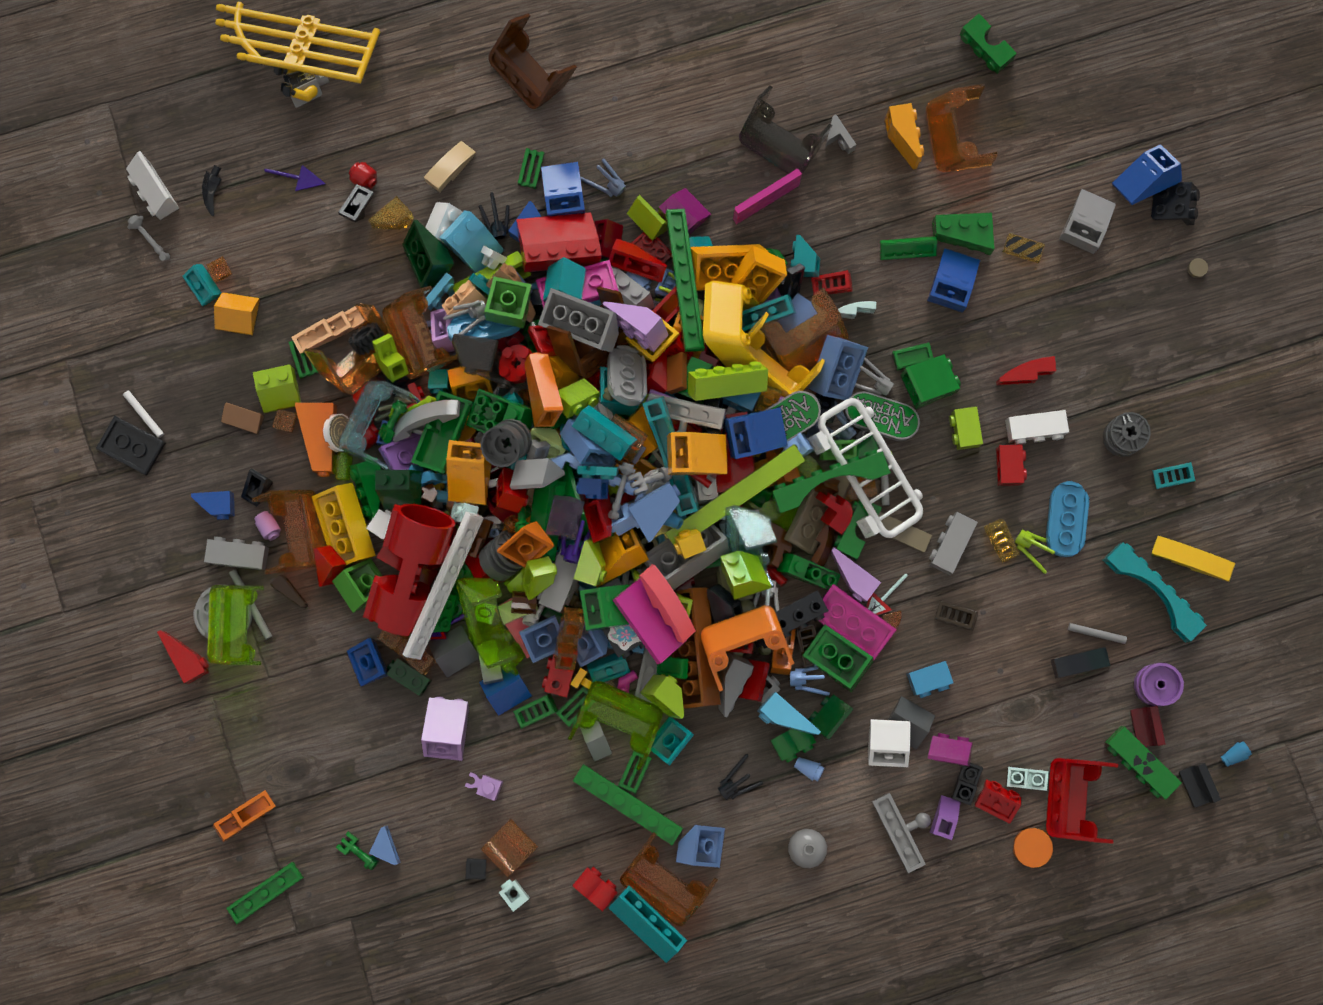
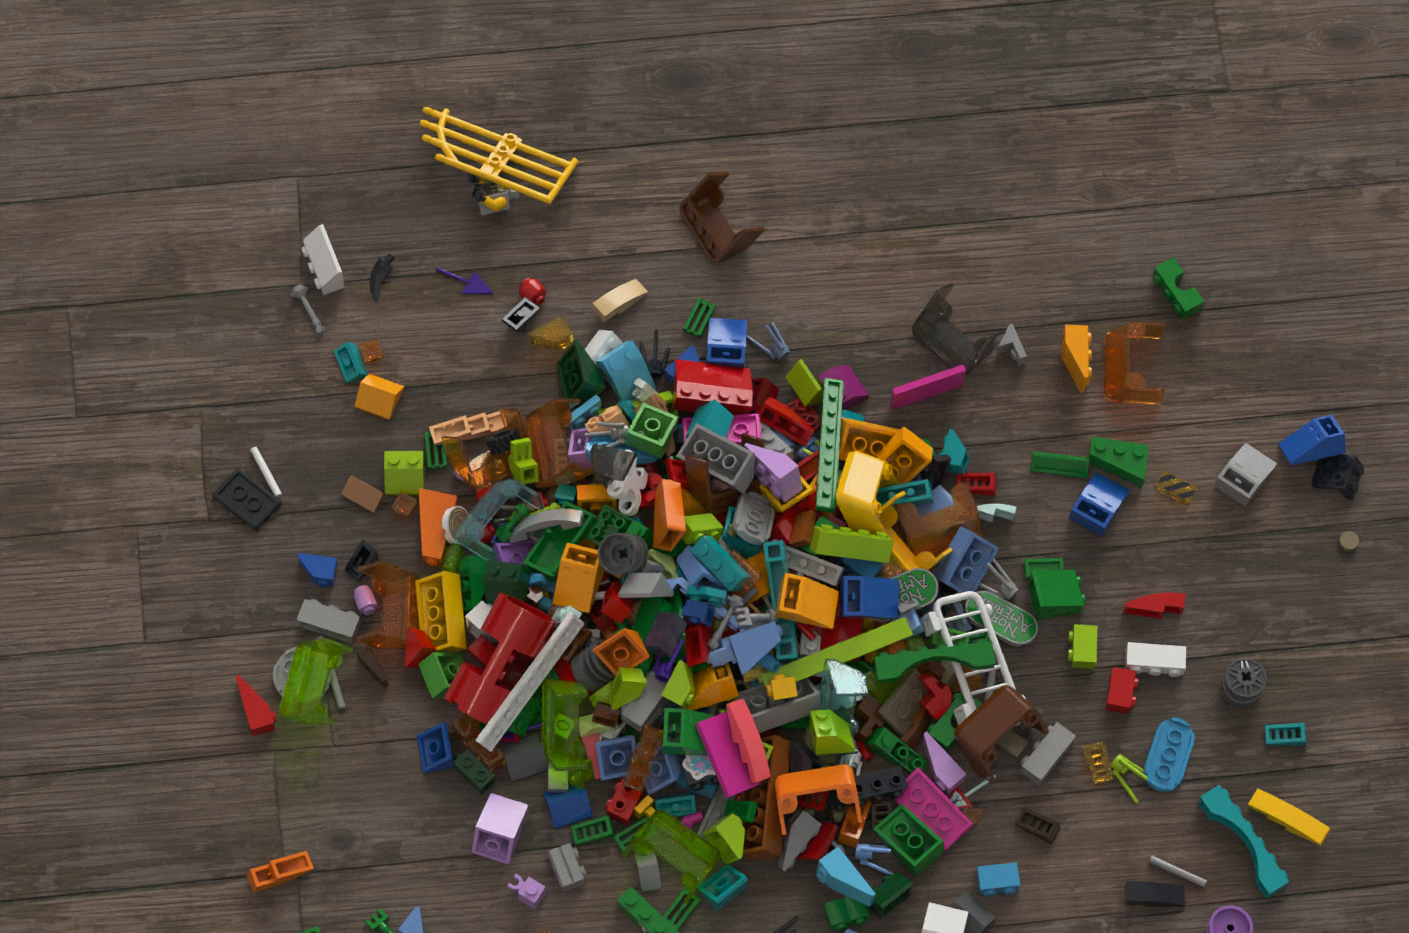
camera: 10 degrees right, 15 degrees down
(500, 369) = (629, 489): none -> white piece
(517, 753) = (566, 867): none -> light grey brick
(795, 431) = (909, 605): none -> light grey tile
(898, 531) = (991, 723): none -> reddish brown windscreen

